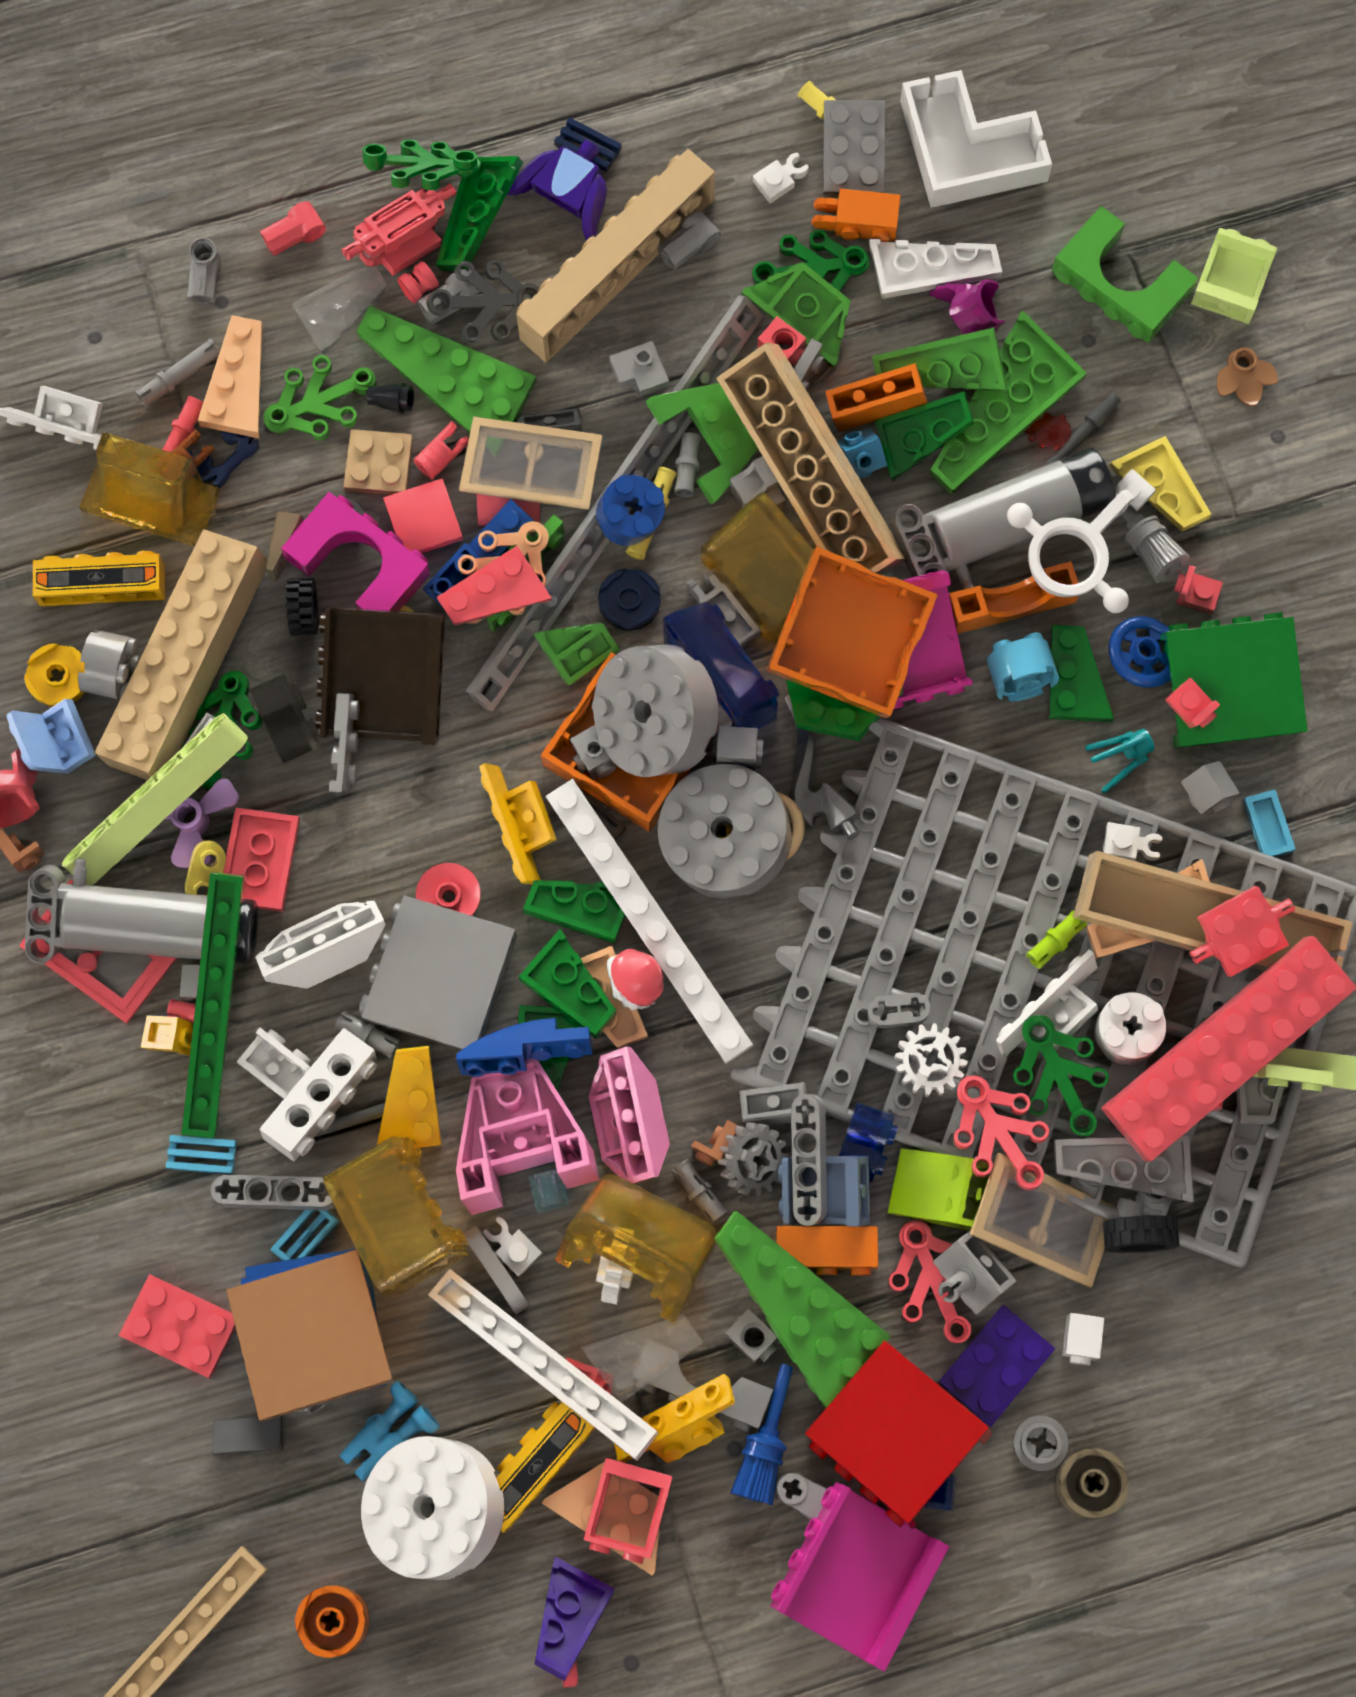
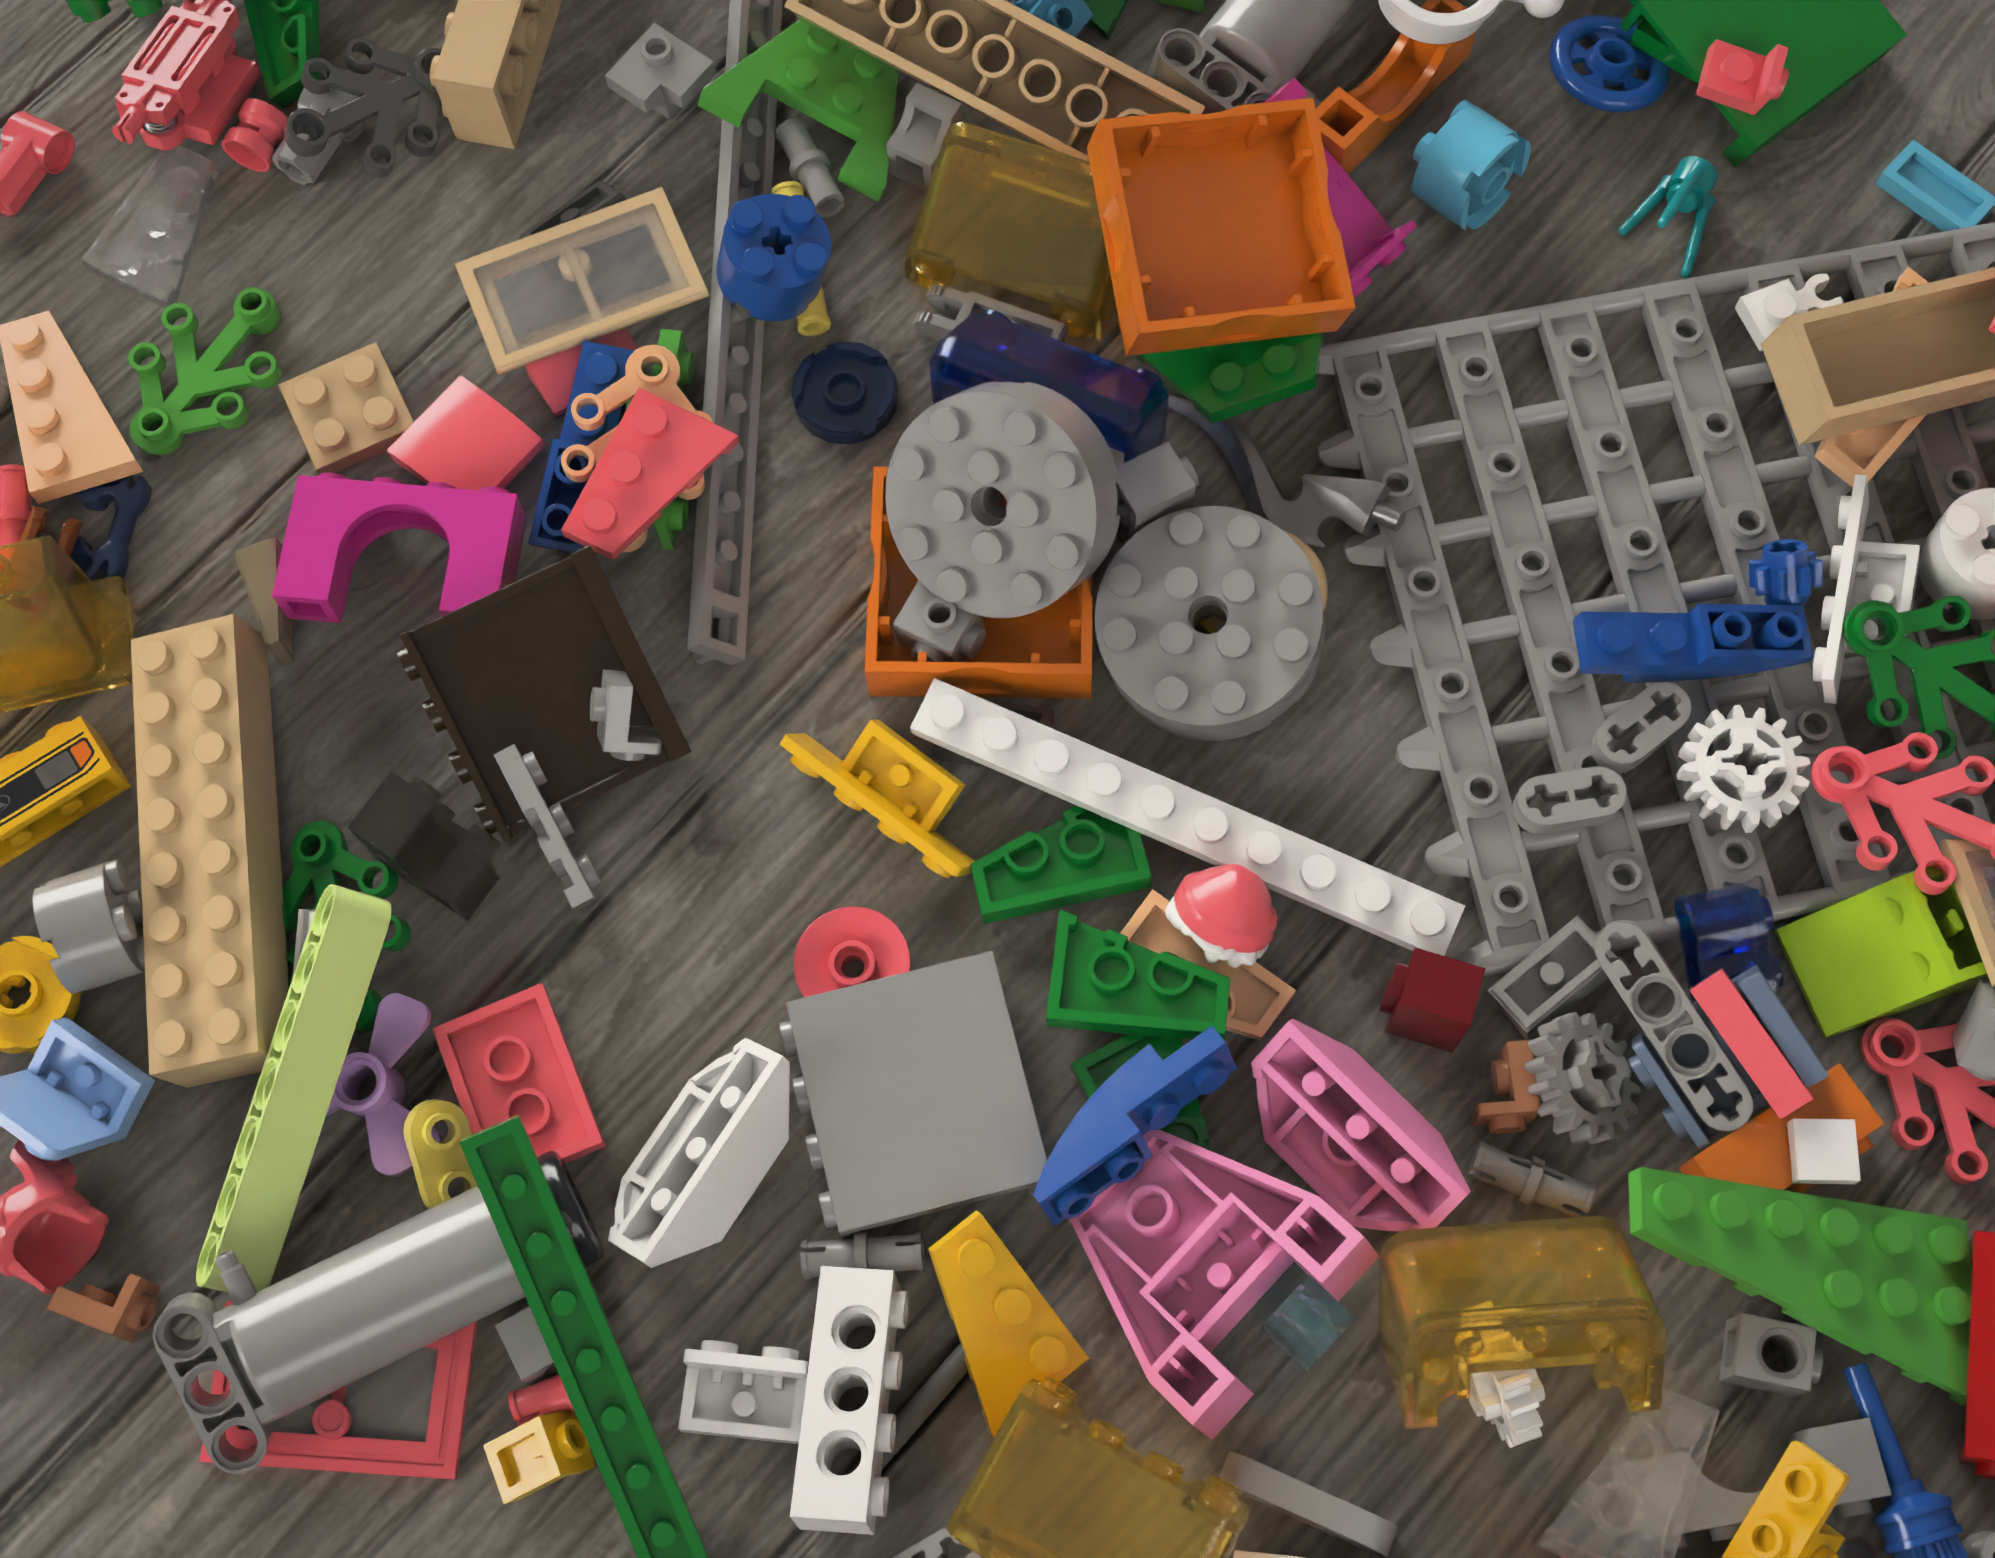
camera: 30 degrees left, 5 degrees down
(302, 606) = (357, 667): black tyre -> none
(392, 397) = (314, 307): black cone -> none
(403, 717) = (612, 710): none -> light grey bracket
(438, 454) = (433, 346): coral hinge -> none
(446, 372) = (372, 234): bright green wing -> none
(515, 1249) = (1315, 1451): white plate -> none
(576, 649) = (815, 498): bright green wing -> none
(705, 1078) = (1432, 999): none -> dark red piece
(834, 1189) = (1751, 1043): none -> coral piece
(837, 1260) = (1823, 1151): none -> white tile
(841, 1017) = (1568, 787): none -> light grey beam
(950, 984) = (1694, 644): none -> blue slope
(1022, 978) = (1786, 573): none -> blue gear
(1055, 940) = (1789, 492): lime pin -> none
(1080, 689) = (1563, 162): green wing -> none
(1210, 788) = (1834, 184): light grey brick -> none

